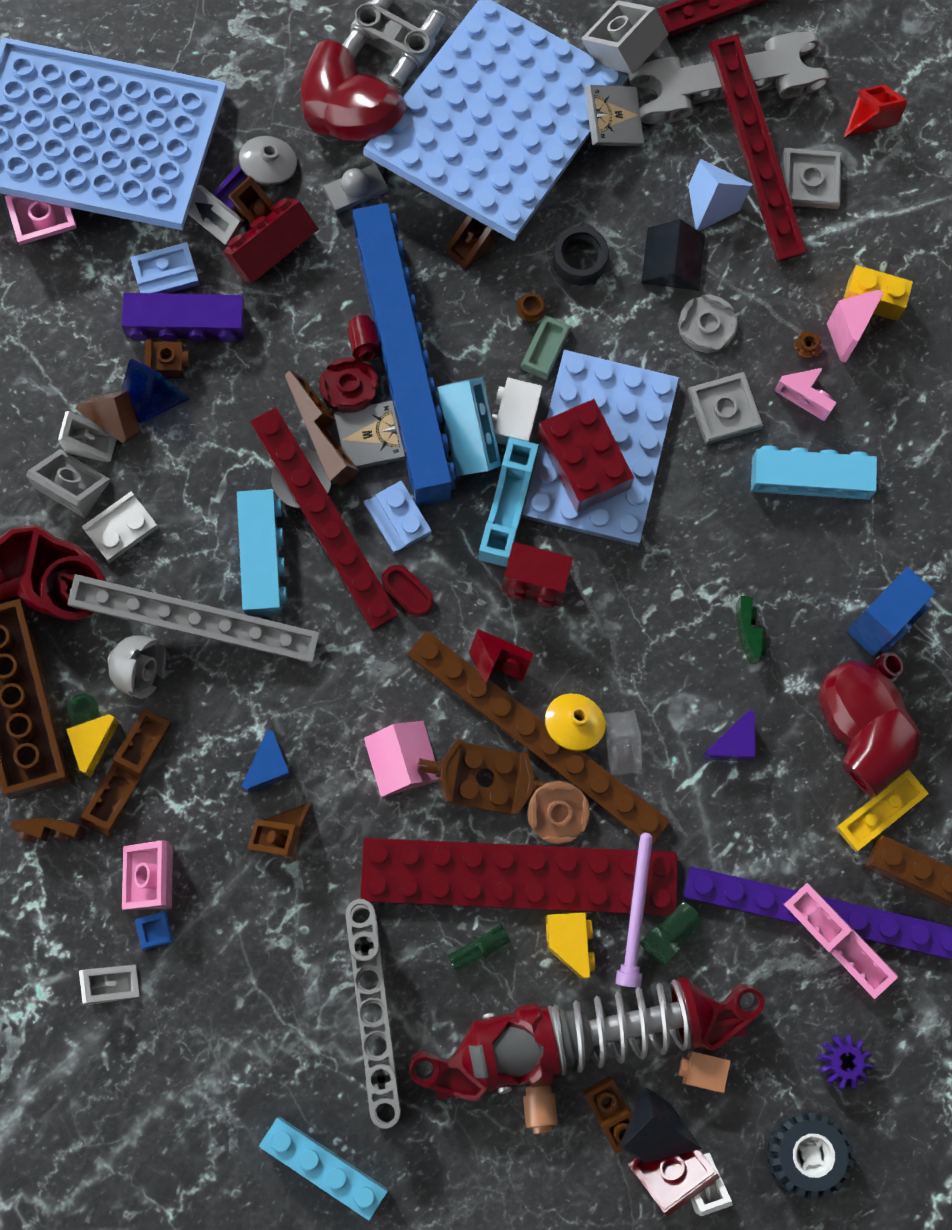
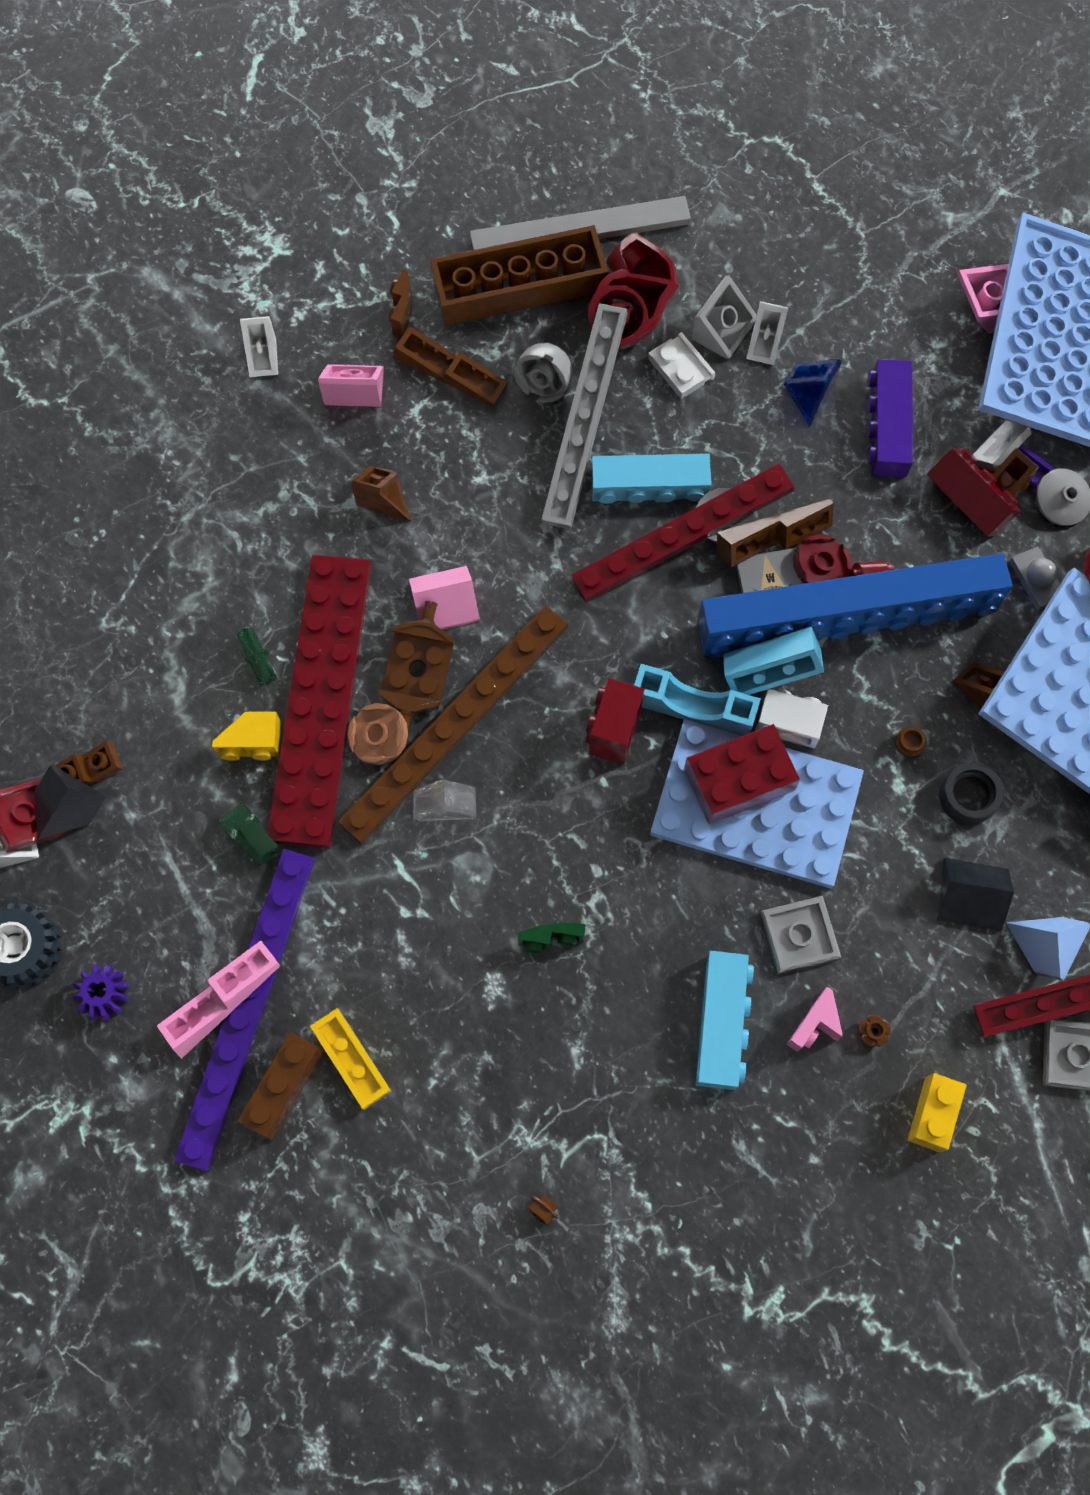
camera: 100 degrees right, 5 degrees down
(82, 708) = (510, 333): clear green plate -> none
(91, 740) = (476, 337): yellow slope -> none
(113, 414) = (789, 355): reddish brown slope -> none
(154, 930) = (305, 389): blue tile -> none
(165, 270) = (939, 403): light blue plate -> none
(169, 368) = (846, 401): reddish brown brick -> none
(267, 765) = (447, 479): blue slope -> none
(323, 1168) = (76, 514): medium azure brick -> none
(363, 962) = (149, 561): light grey piece -> none
(397, 517) = (681, 603): light blue plate -> none
(407, 591) = (609, 610): dark red tile -> none
(495, 653) = (538, 682): dark red slope -> none
(540, 1109) = (100, 701): nougat brick -> none
(543, 1041) = (157, 704): piece -> none
(545, 347) = (867, 754): sand green tile -> none
(567, 730) = (452, 760): yellow dish -> none
(629, 971) = (214, 790): lavender piece -> none
(704, 1071) = (111, 853): nougat brick -> none
(707, 323) = (897, 924): light grey tile -> none
(736, 743) = (434, 912): dark purple slope -> none
(850, 321) = (899, 1077): bright pink slope -> none
(872, 720) = (442, 1056): dark red piece -> none
(889, 665) = (504, 1089): dark red plate -> none
(892, 613) = (555, 1076): blue brick -> none

